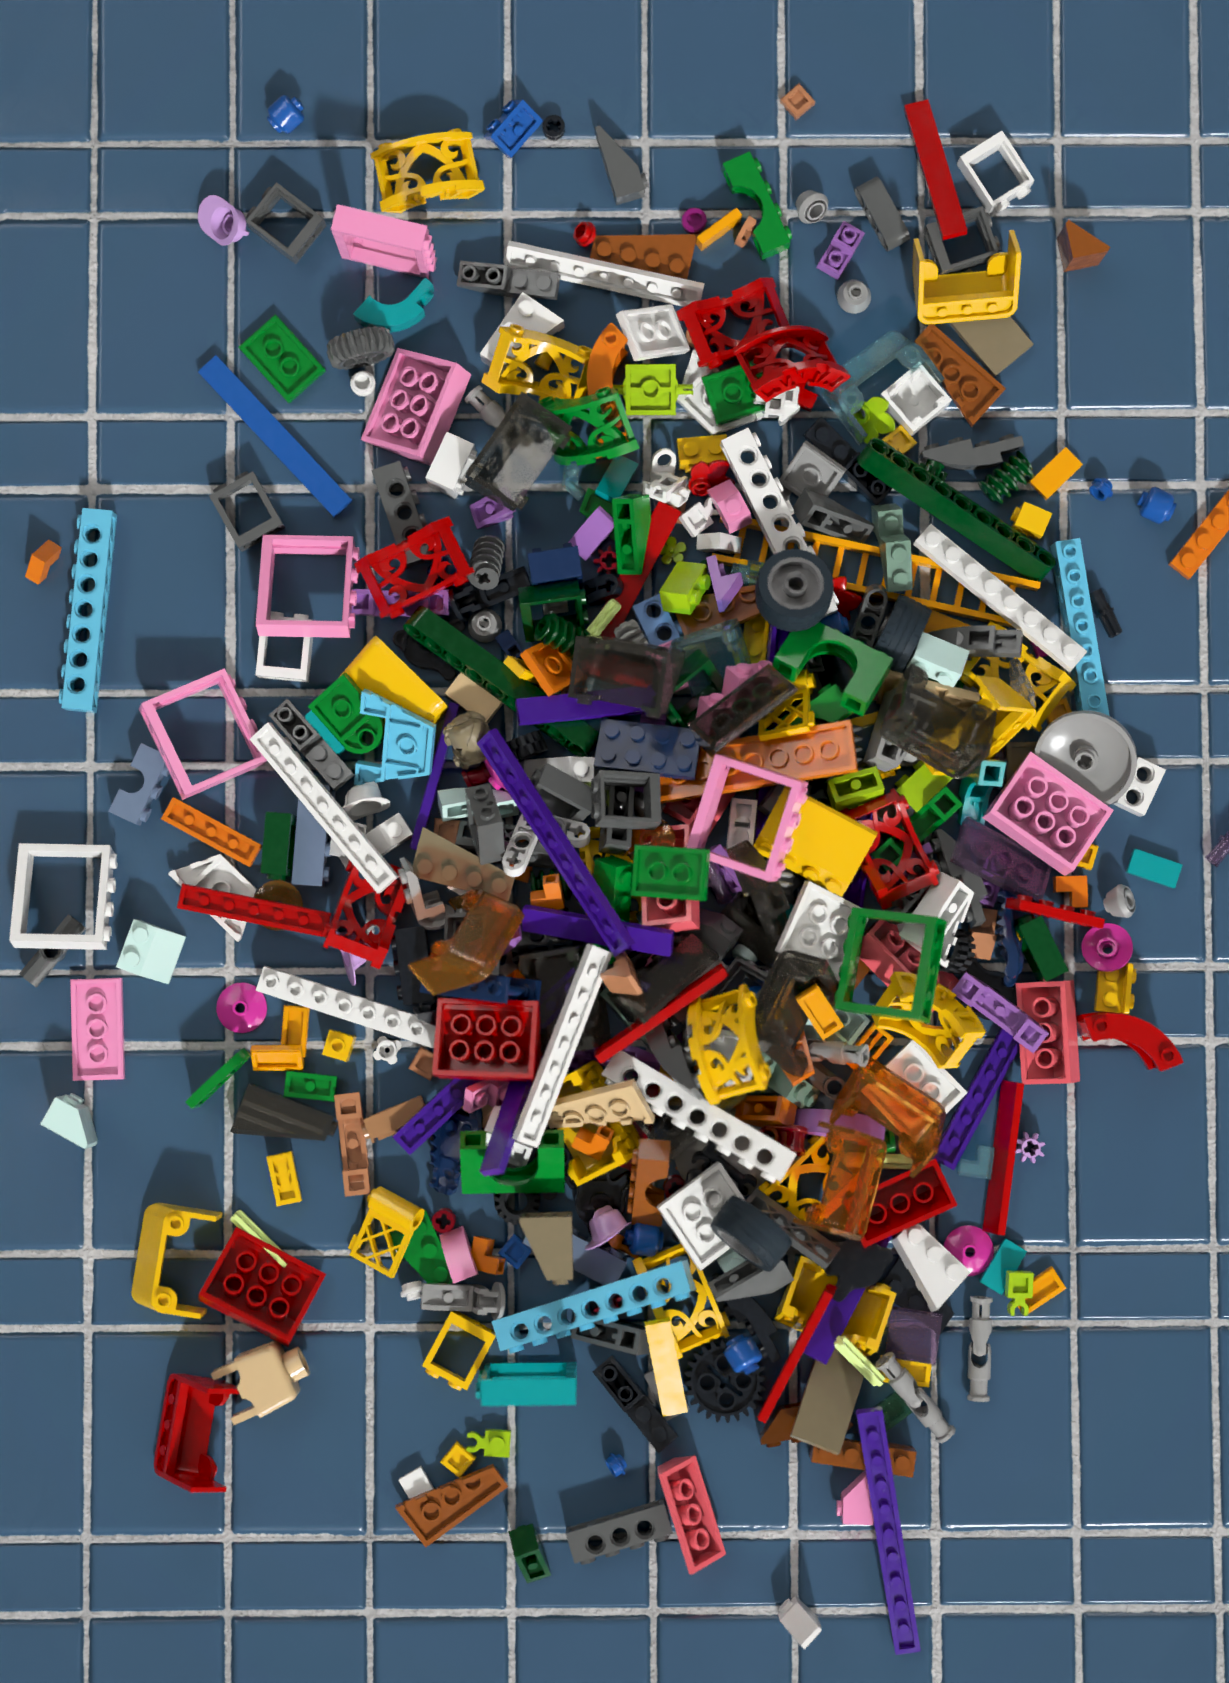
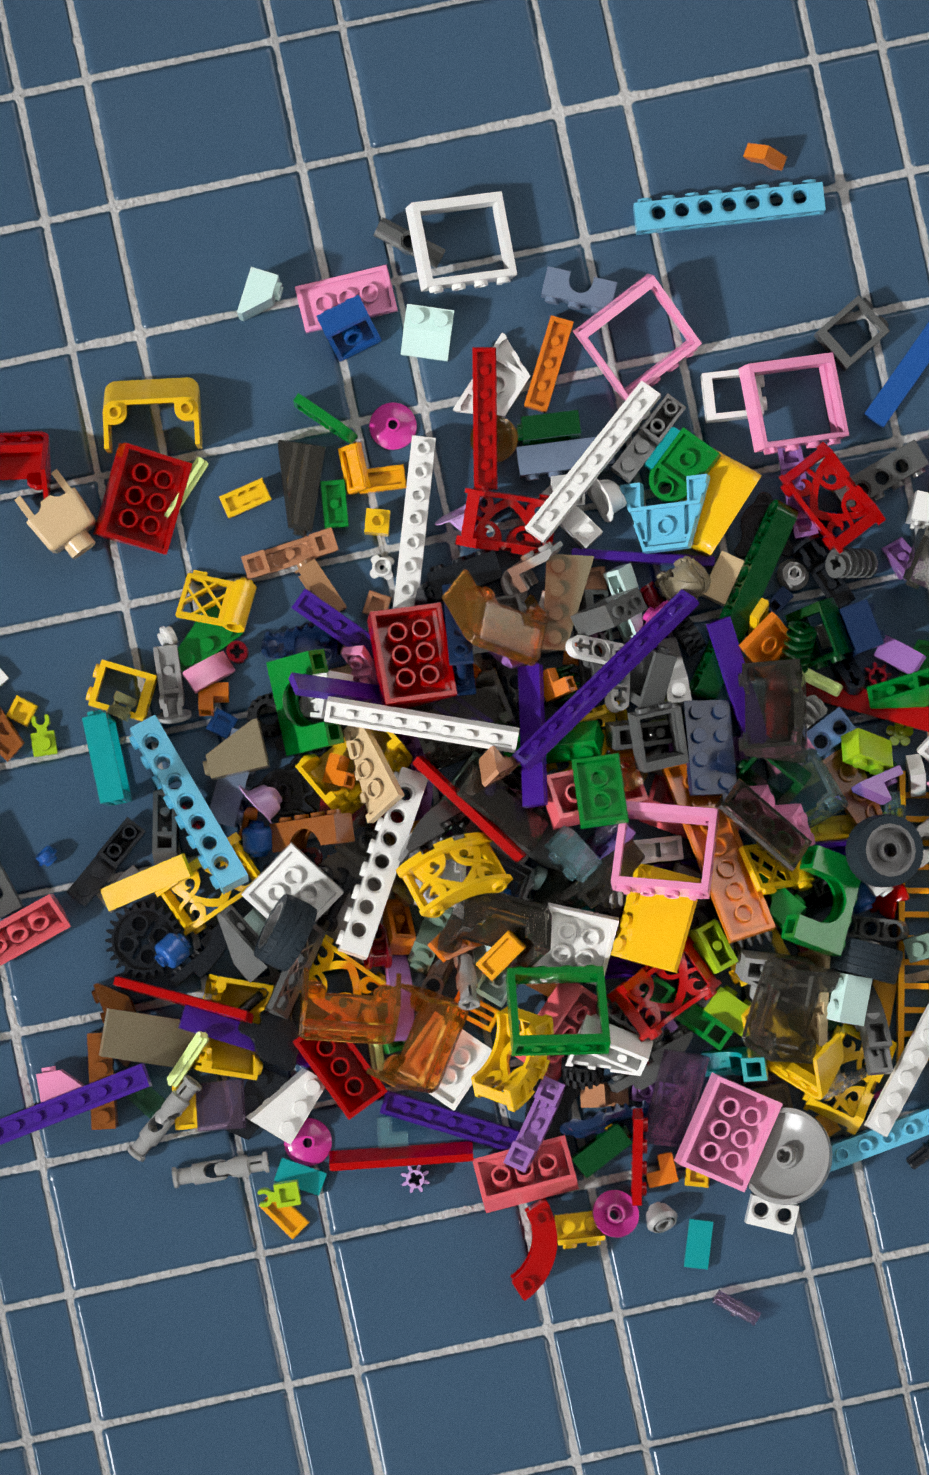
camera: 80 degrees right, 0 degrees up
(128, 1033) = (348, 328): none -> blue slope
(480, 1359) = (120, 711): none -> olive wheel
(730, 914) = (572, 854): none -> clear light blue brick
(813, 1281) = (254, 1000): none -> black piece

